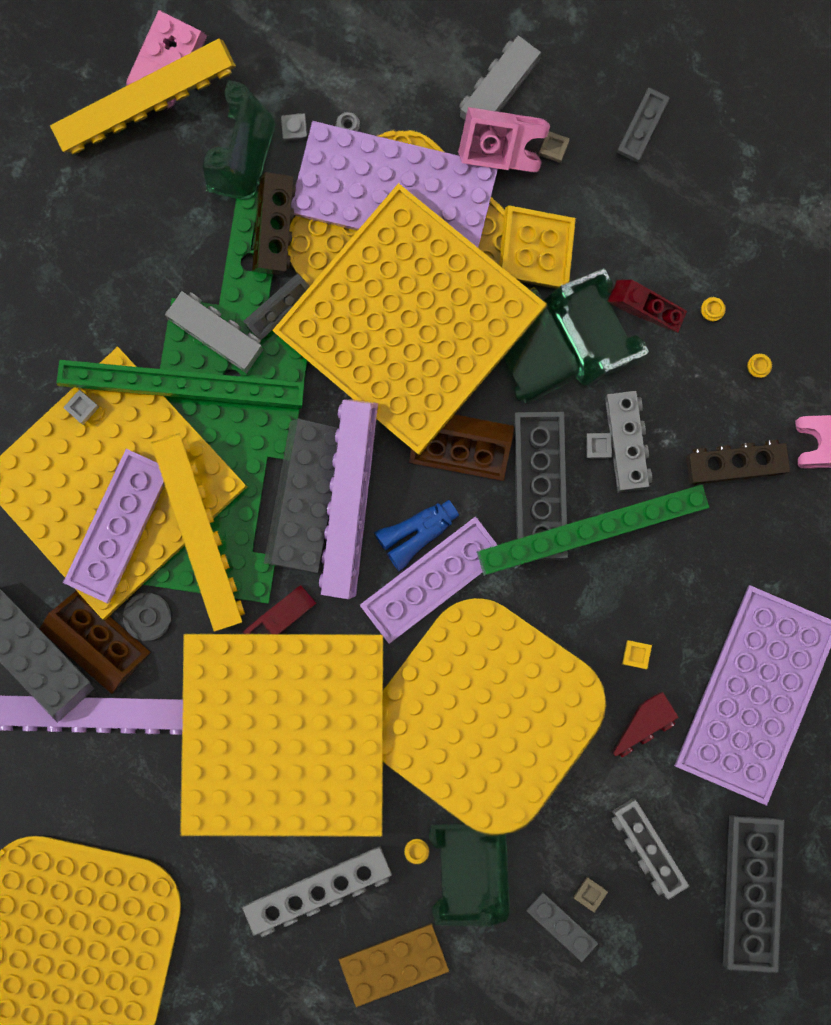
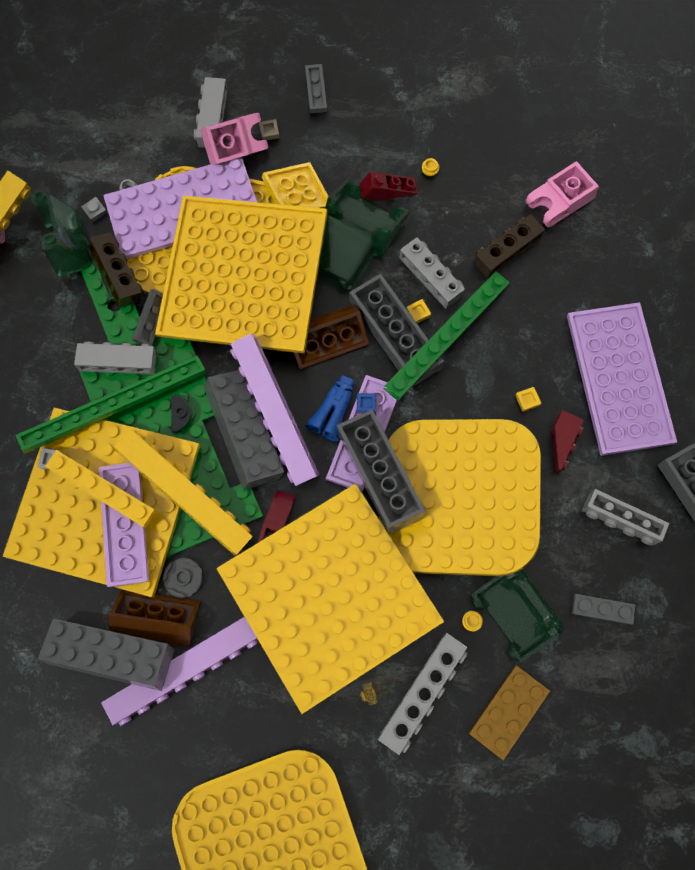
camera: 35 degrees left, 10 degrees down
(114, 474) = (100, 488): none -> yellow plate
(247, 437) = (180, 413): none -> black plate
(261, 856) = (368, 694): none -> clear yellow plate
(417, 638) = (381, 471): none -> dark grey brick
(454, 550) = (366, 402): none -> blue tile
(582, 478) = (419, 311): none -> yellow plate
(590, 894) = (607, 574): dark tan plate -> none
(598, 445) = (415, 286): light grey plate -> none
(759, 365) = (481, 183): yellow plate -> none

